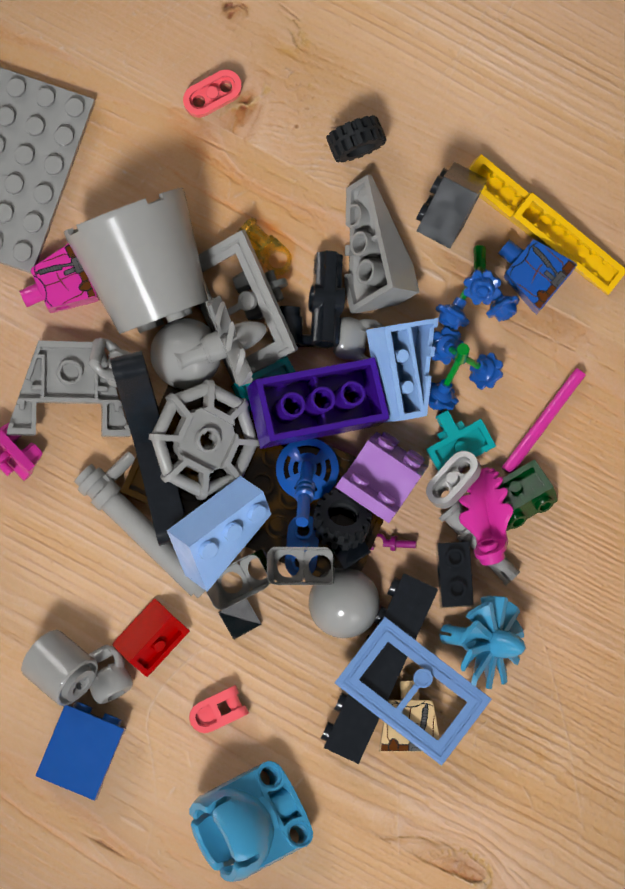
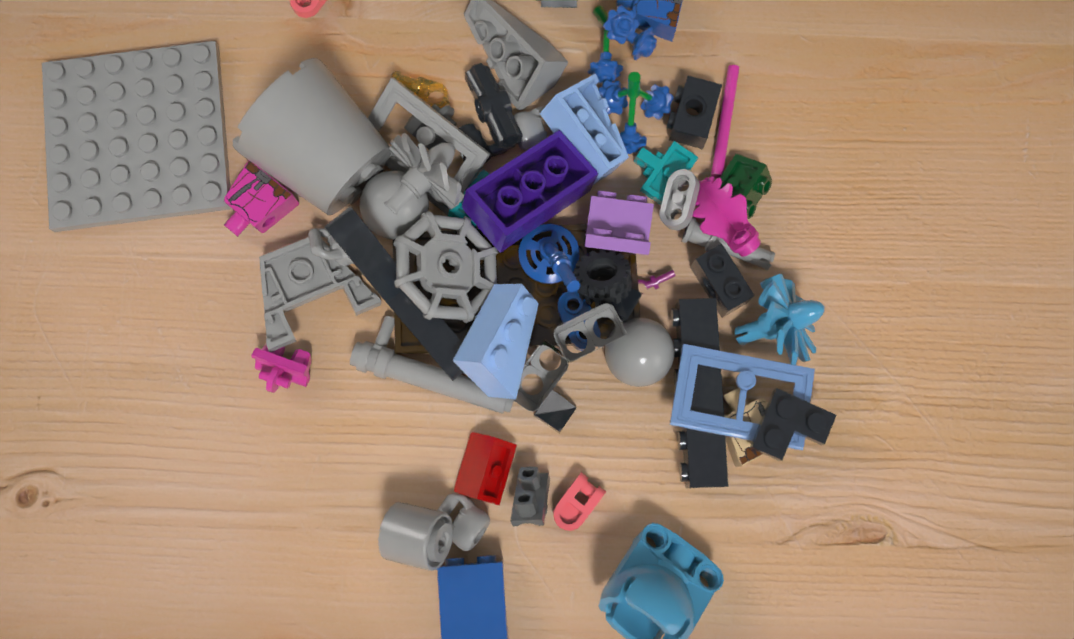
camera: 25 degrees left, 5 degrees down
(178, 684) = (530, 497): none -> dark grey hips
(443, 728) = (786, 416): none -> black plate
(533, 390) = (701, 96): none -> black brick

